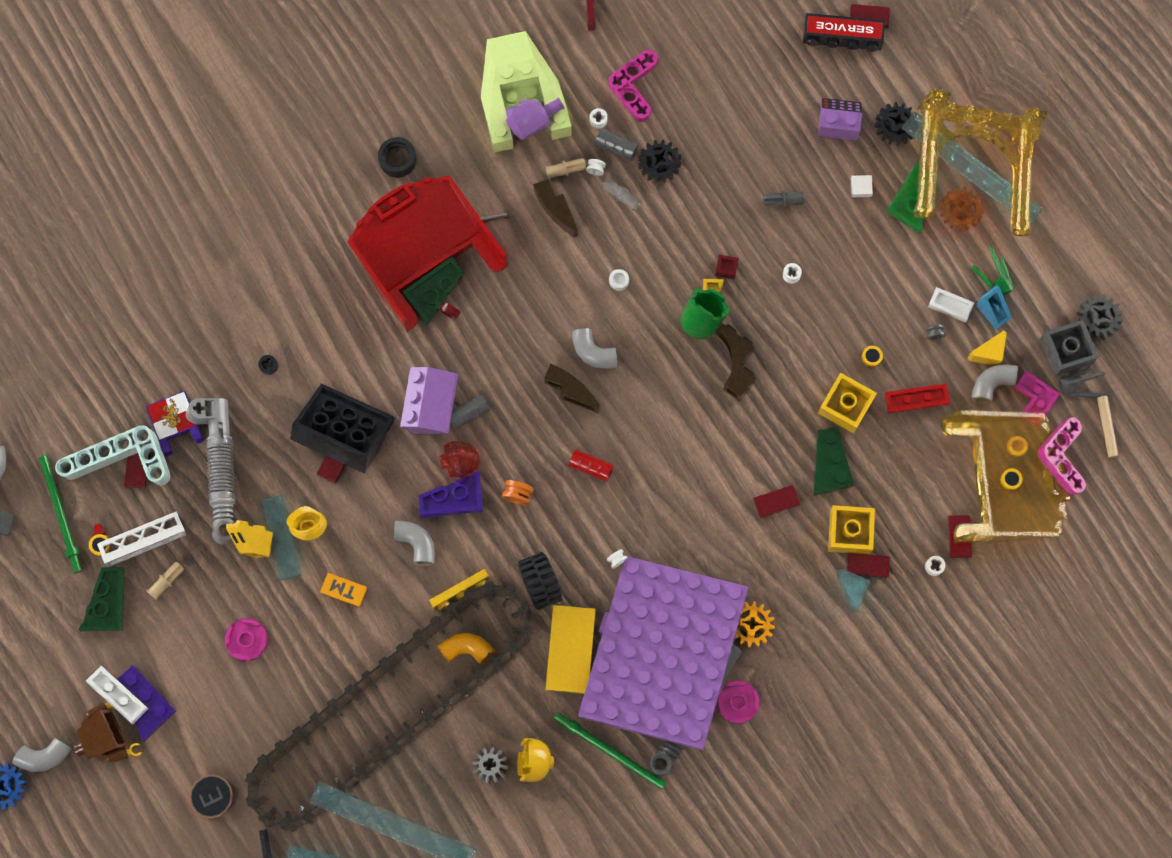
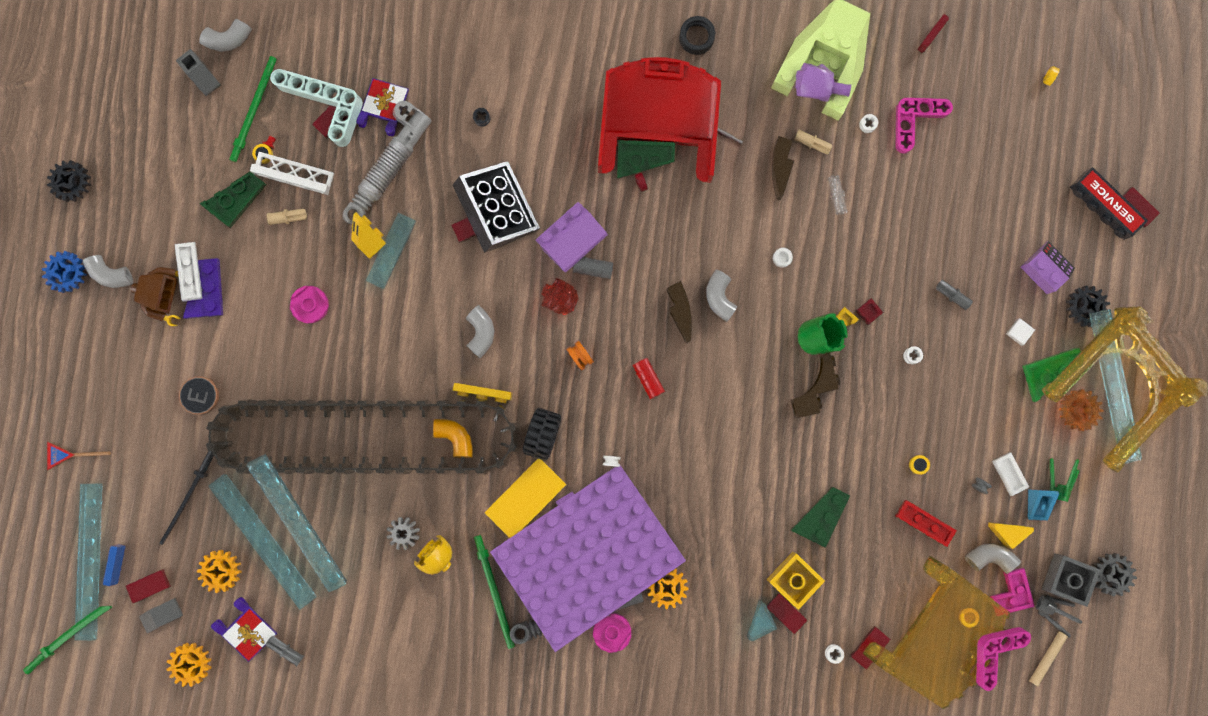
camera: 40 degrees right, 10 degrees up
(306, 523) = (414, 256): yellow hat -> none
(343, 590) = (403, 324): light orange tile -> none
(457, 498) = (532, 322): dark purple wing -> none
(596, 167) = (835, 159): white bush -> none
(616, 144) = (865, 154): dark grey axle -> none
(664, 168) = (888, 200): black gear -> none
(776, 501) = (759, 513): dark red tile -> none
(847, 403) = (871, 486): yellow brick -> none
(1011, 479) = (943, 639): tile -> none

